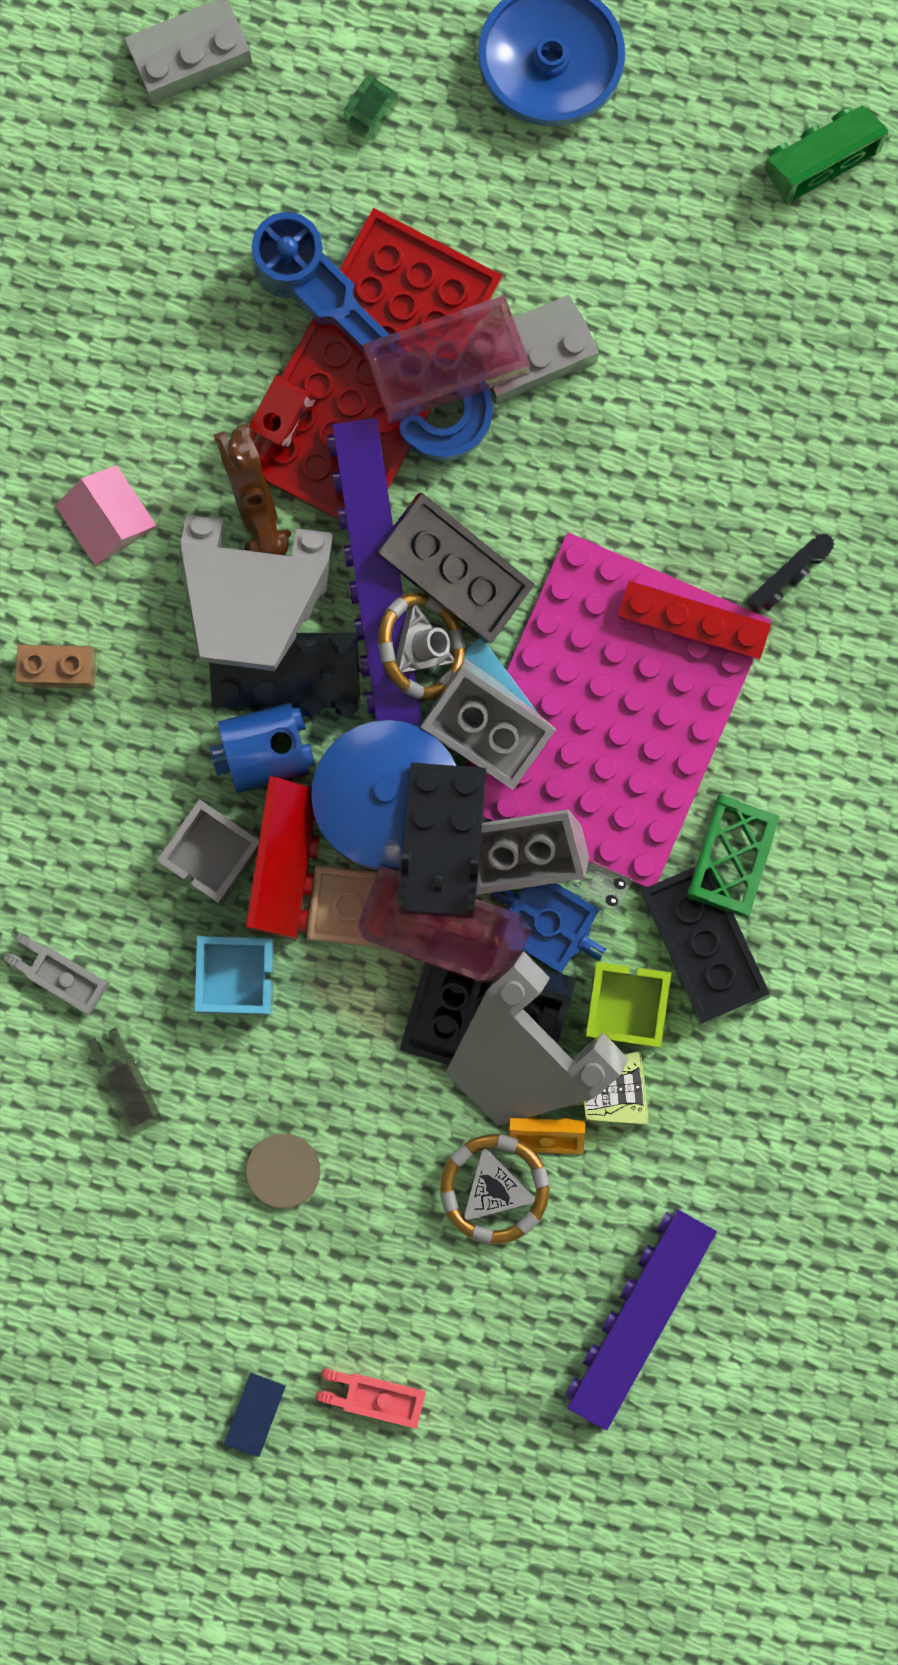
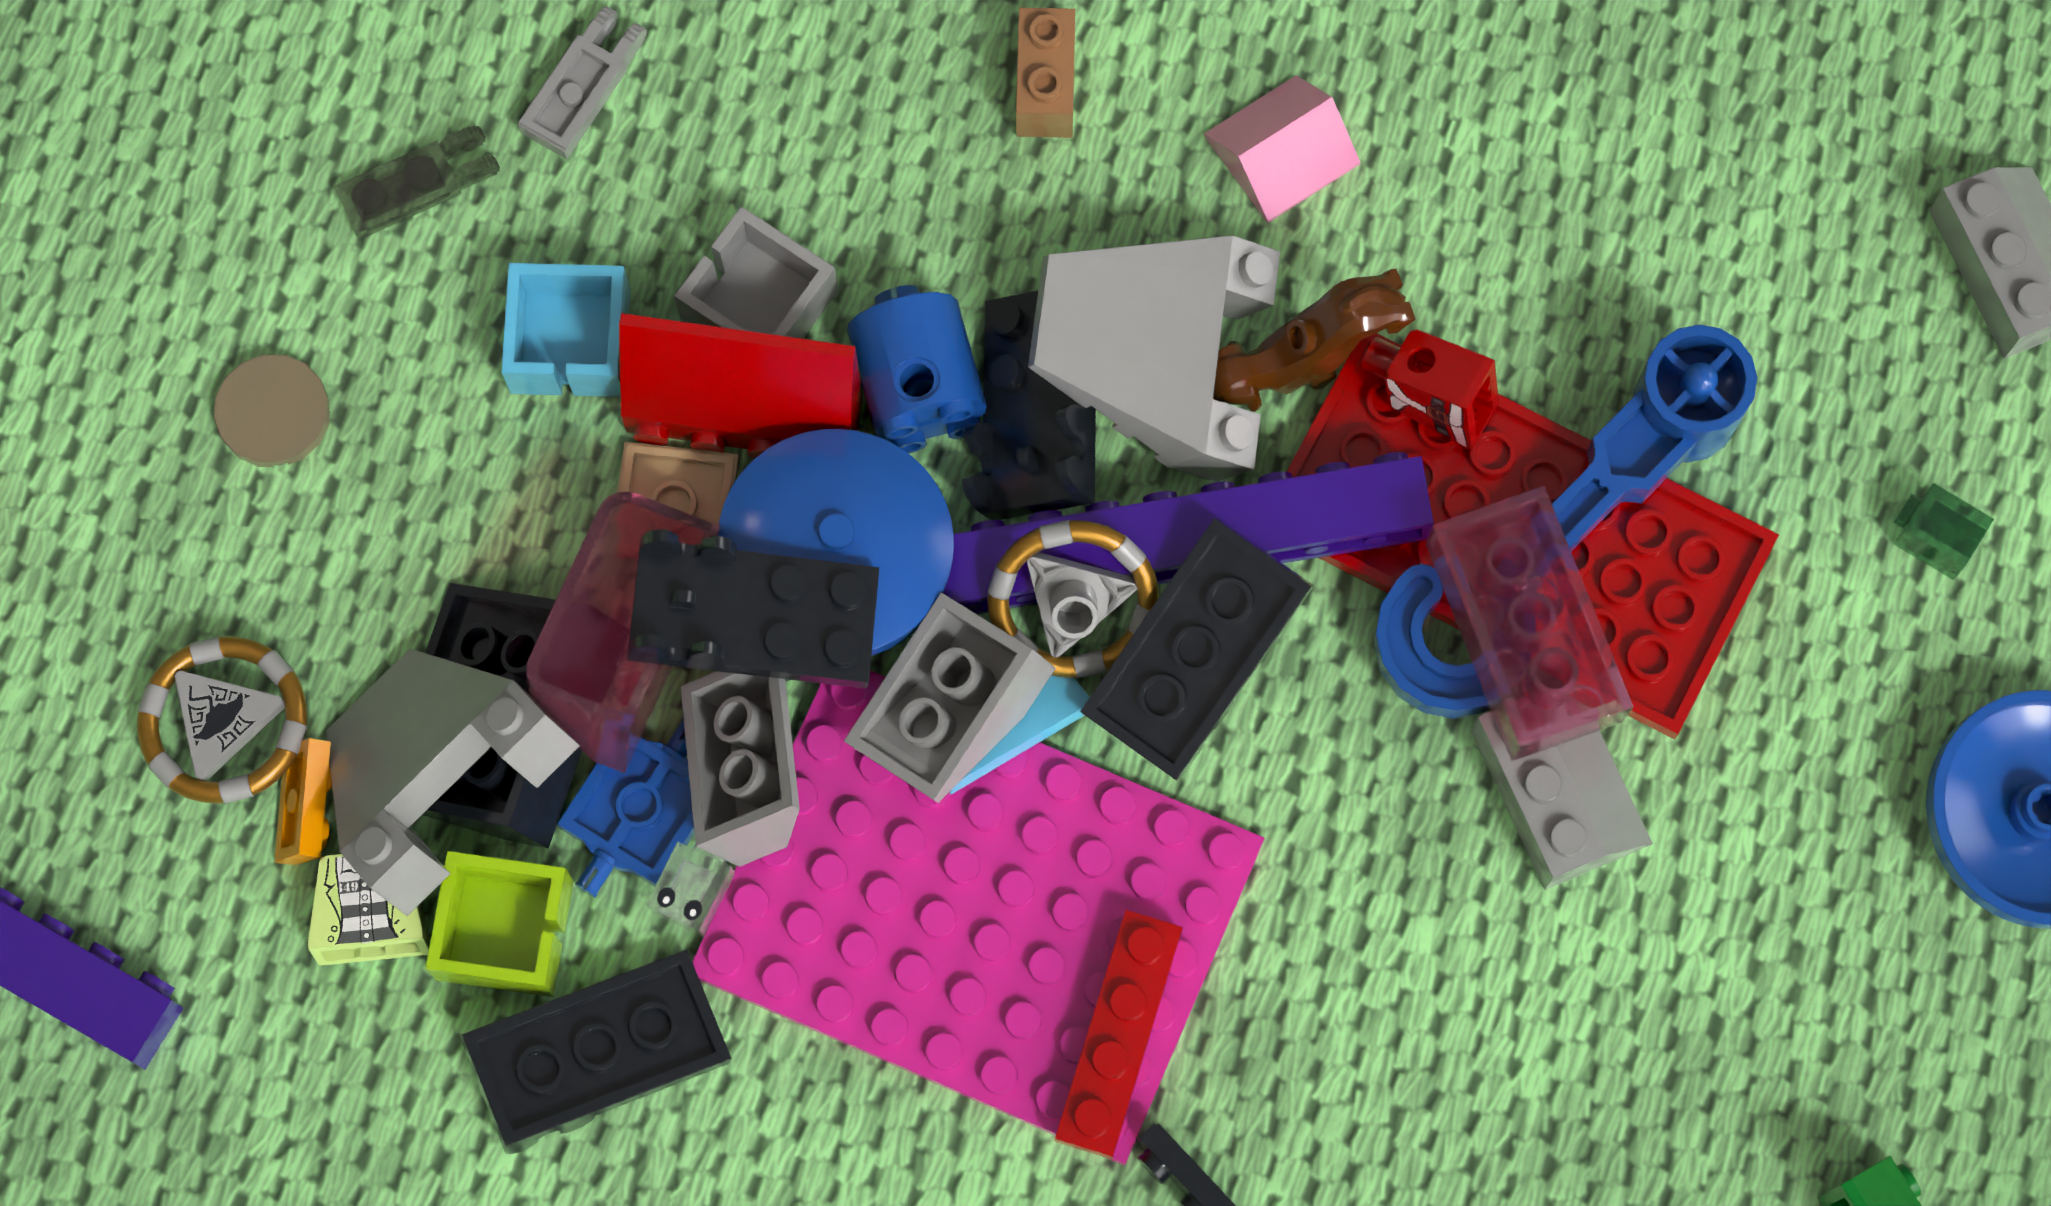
camera: 85 degrees right, 10 degrees down
(761, 848) = (696, 1125): green window -> none

